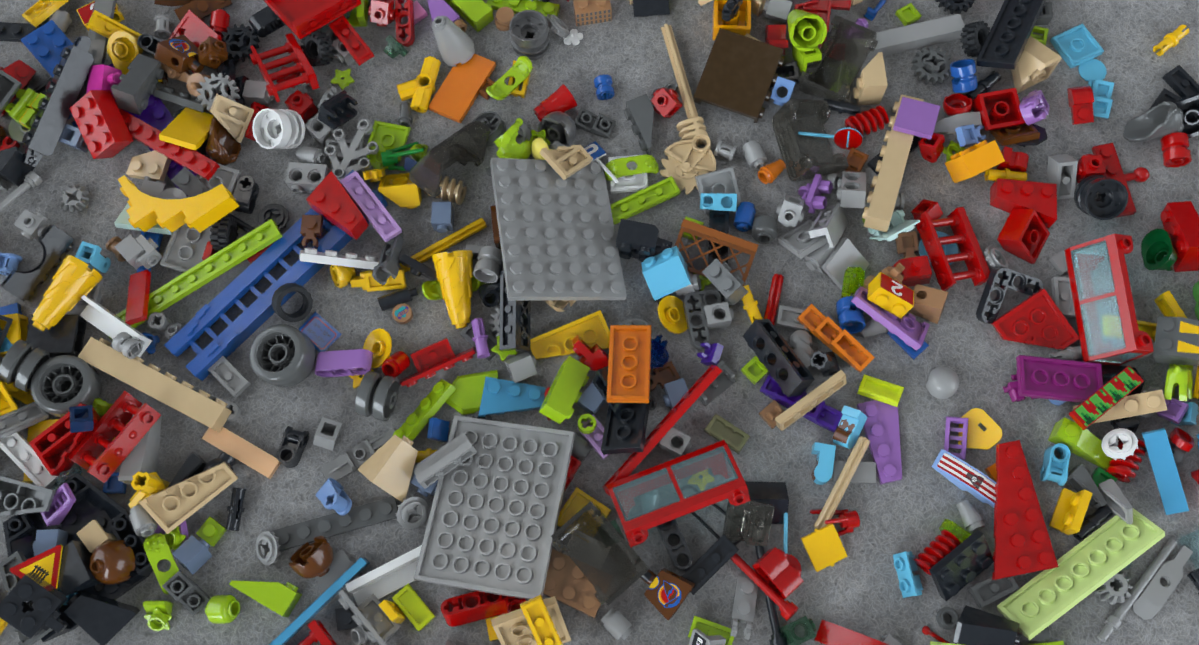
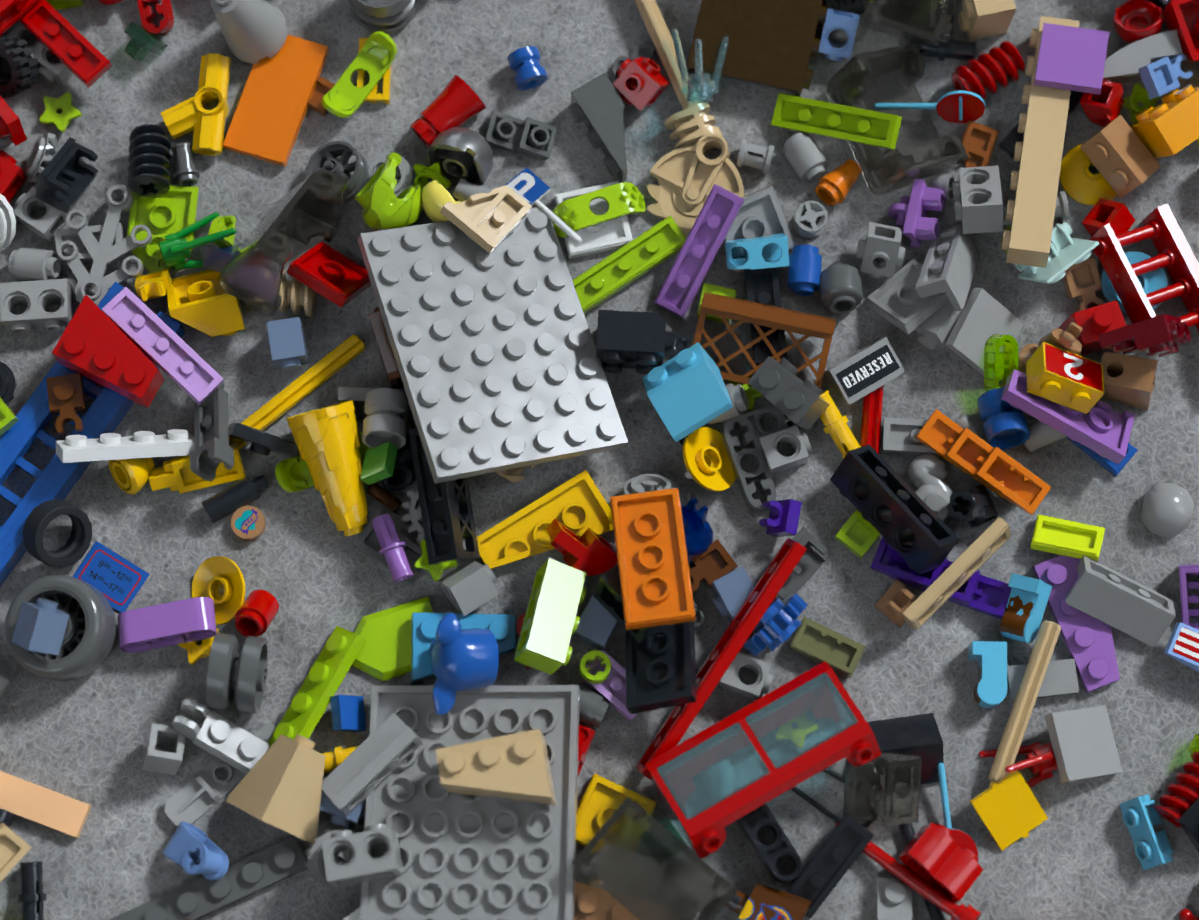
camera: 15 degrees left, 5 degrees up
(267, 351) = (40, 627): none -> sand blue brick
(292, 442) = (107, 771): black piece -> none
(360, 430) = (220, 736): none -> light grey hinge
(384, 108) = (149, 161): none -> black piece
(426, 519) = (362, 865): none -> light grey brick
(434, 358) = (320, 594): red bracket -> none
(472, 181) = (330, 274): none -> red tile
(481, 288) = (379, 463): none -> bright green tile
(481, 309) = (384, 497): none -> reddish brown piece
(506, 407) = (461, 661): none -> blue piece
(518, 472) = (500, 767): none -> tan wedge
(685, 196) = (699, 251): none -> medium lavender tile
(697, 414) = (776, 625): none -> blue gear
(699, 107) = (699, 87): none -> clear light blue plant
(753, 185) = (812, 213): none -> light grey wheel
(772, 277) = (865, 370): none -> panel
(775, 135) = (836, 121): none -> lime plate
(875, 514) = (1083, 743): none -> light grey tile
(908, 432) = (1120, 602): none -> light grey panel
(914, 191) = (1079, 182): none -> yellow dish
(938, 176) = (1120, 156): none -> medium nougat brick
(949, 275) = (1155, 335): none -> dark red plate

